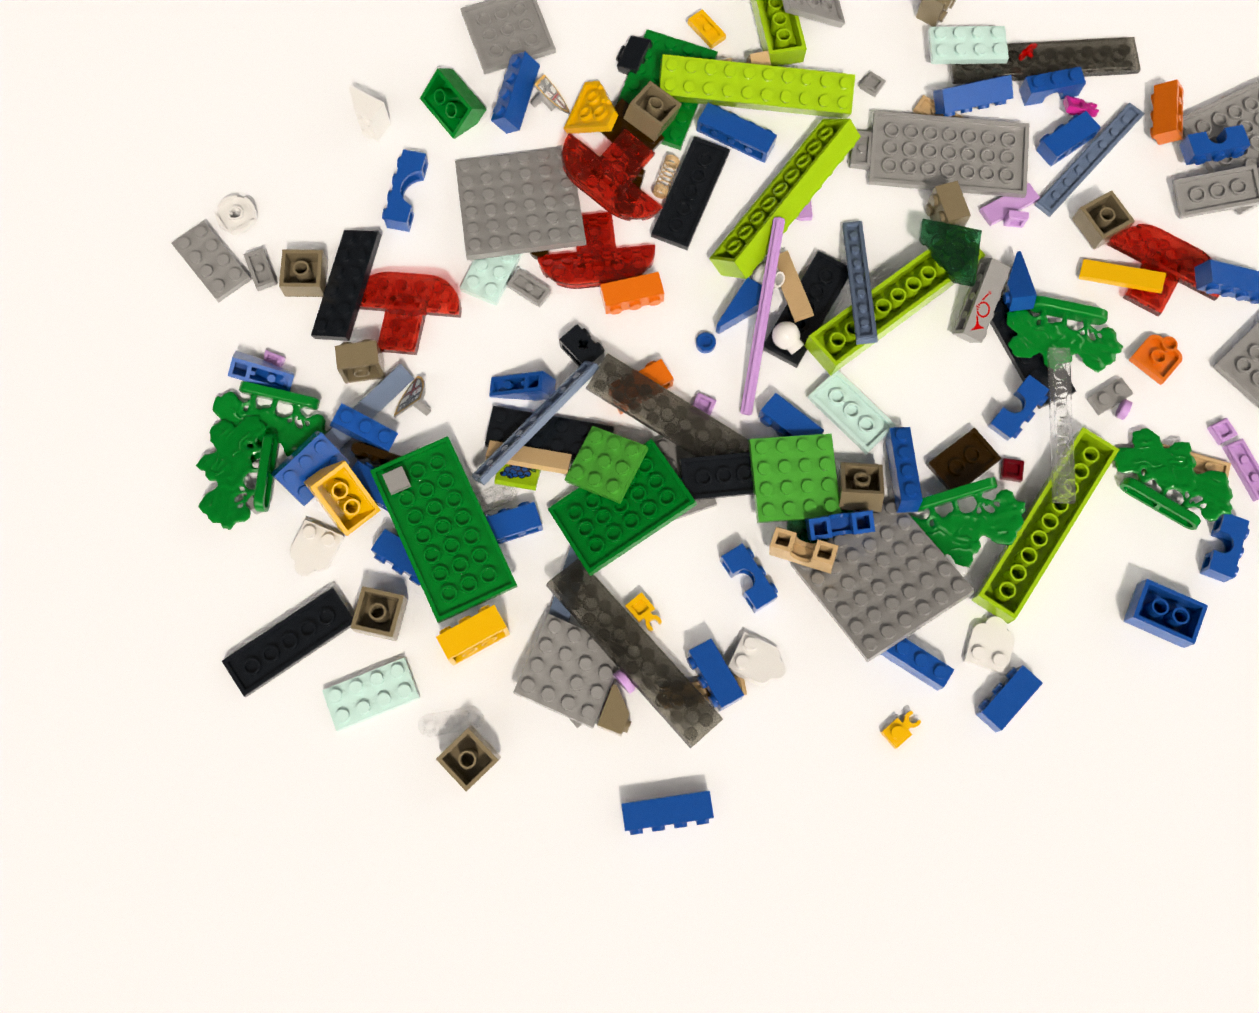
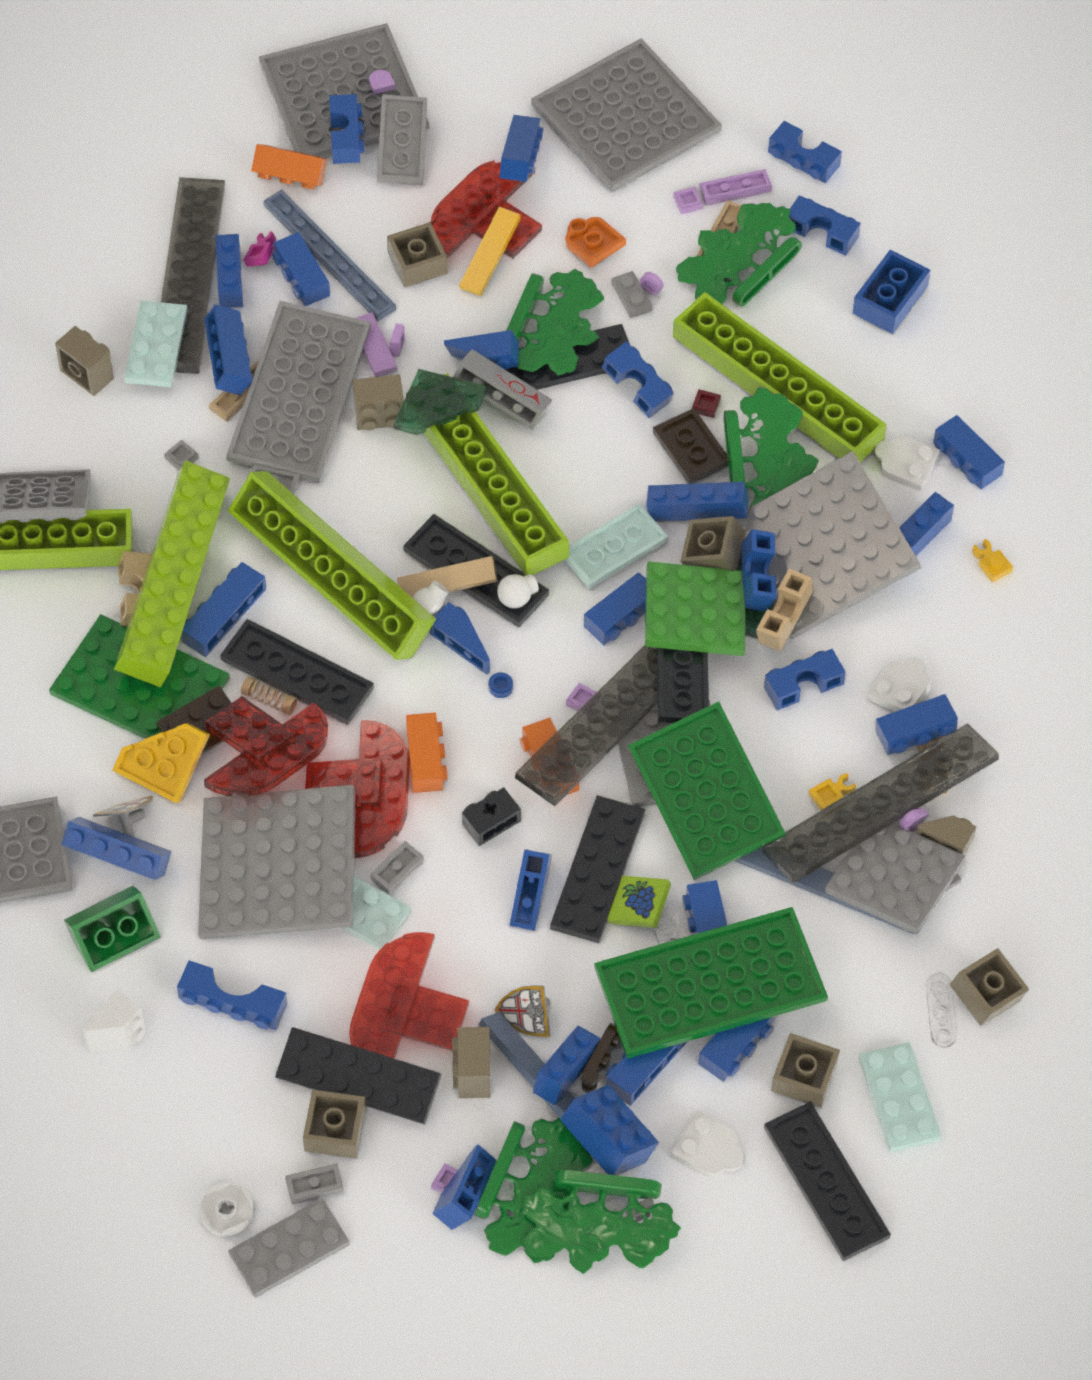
camera: 80 degrees left, 15 degrees down
(342, 496) = (657, 1091): yellow slope -> none
(396, 480) = (646, 1021): light grey tile -> none
(472, 634) = (844, 967): yellow brick -> none
(535, 422) = (590, 865): sand blue tile -> none
(536, 458) = (626, 887): tan tile -> none
(606, 464) = (651, 799): bright green plate -> none
(633, 55) = (84, 709): black piece -> none
(652, 111) = (192, 683): dark tan brick -> none
(667, 811) = (1065, 798): blue brick -> none
(706, 29) = (64, 621): yellow plate -> none
(762, 316) = (486, 610): lavender axle -> none
(859, 283) = (461, 502): sand blue tile -> none
(1027, 51) = (183, 283): red plant -> none
(1061, 426) = (668, 339): clear plate -> none

